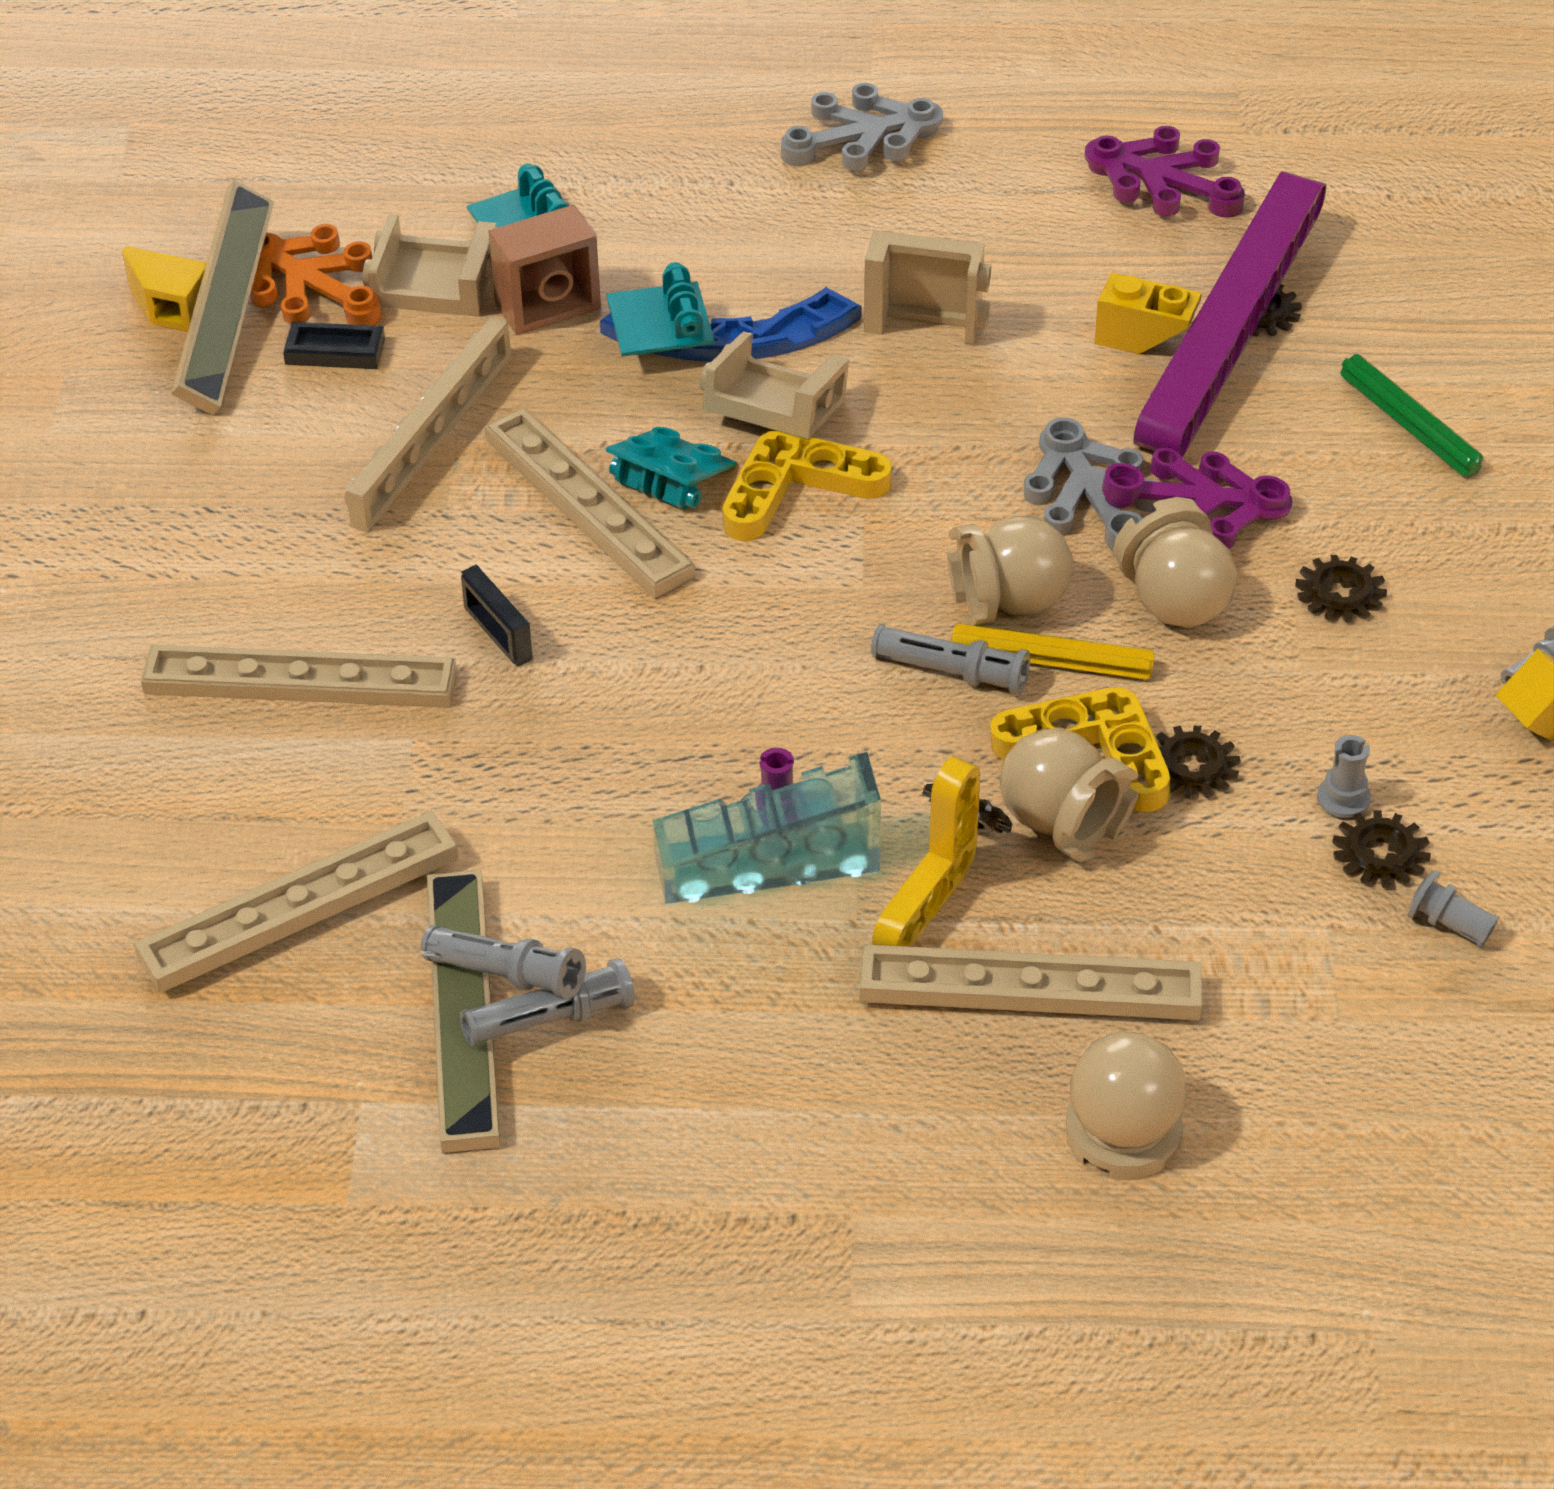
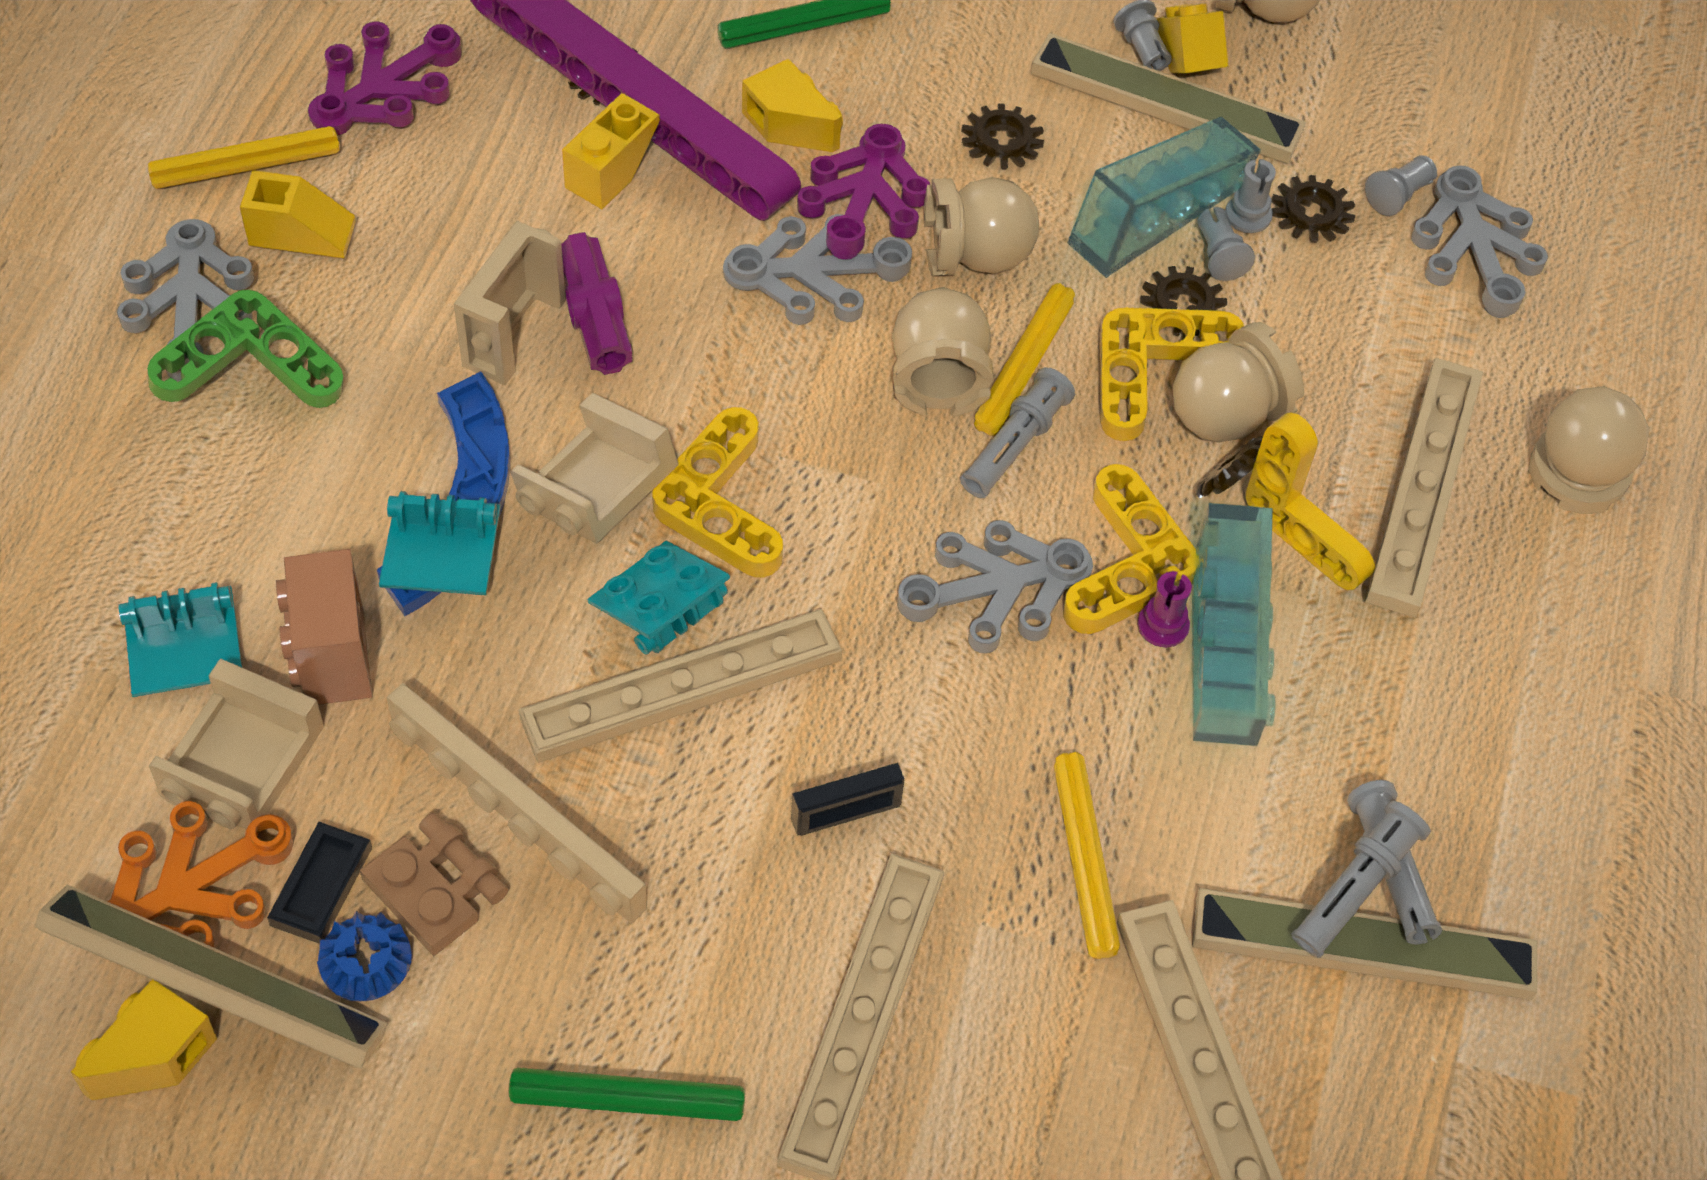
camera: 80 degrees left, 10 degrees up
(190, 551) = (626, 1094): none -> green axle
(264, 393) = (386, 969): none -> blue gear
(340, 401) = (421, 895): none -> medium nougat plate
(503, 787) = (1086, 856): none -> yellow axle
(808, 718) = (998, 578): none -> light grey plant
(817, 158) = (243, 336): none -> bright green beam
(889, 753) = (1147, 559): none -> yellow beam
(964, 153) = (294, 216): none -> yellow slope
(967, 351) = (595, 304): none -> magenta piece
(1028, 121) = (243, 157): none -> yellow axle
(1269, 774) = (1226, 250): none -> light grey pin
(1276, 420) = (790, 109): none -> yellow slope
(1312, 698) = (1158, 193): none -> clear light blue wedge
(1470, 707) = (1163, 95): none -> tile
(1473, 969) = (1462, 191): none -> light grey plant

